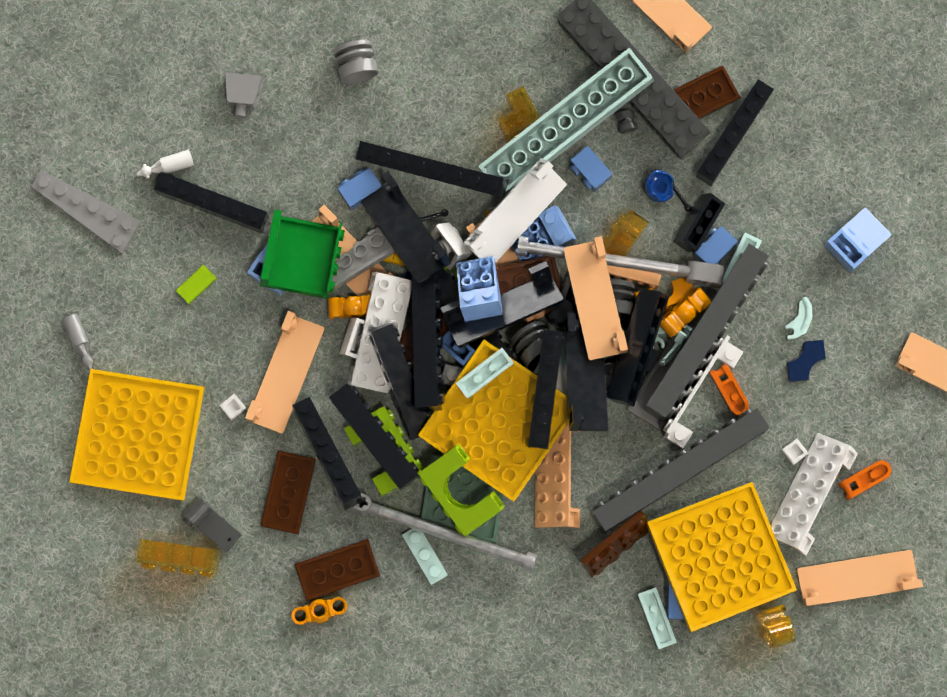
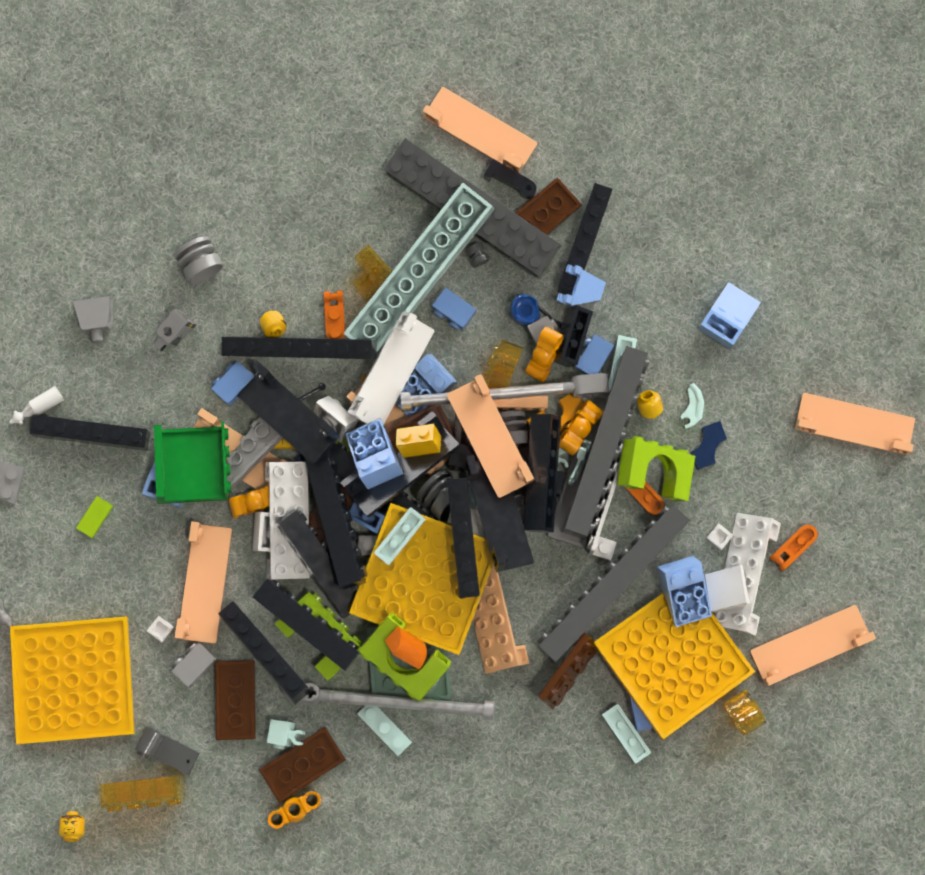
camera: 15 degrees left, 0 degrees up
(103, 574) = (71, 826): none -> yellow head
(257, 448) = (193, 664): none -> light grey brick
(322, 119) = (180, 326): none -> light grey torso
(326, 536) = (283, 734): none -> light aqua brick
(412, 141) = (273, 324): none -> yellow head
(465, 481) = (407, 647): none -> orange brick
(473, 146) = (334, 315): none -> orange plate
(525, 286) = (418, 440): none -> yellow brick
(667, 233) = (544, 354): none -> light orange piece
(672, 209) = (536, 327): none -> light grey brick
(677, 55) = (510, 178): none -> black leg
(724, 180) = (586, 288): none -> light blue flag
(748, 494) = (685, 590): none -> light blue slope
(758, 307) = (649, 404): none -> yellow head
(770, 370) = (677, 467): none -> lime arch
(789, 503) = (726, 589): none -> white tile

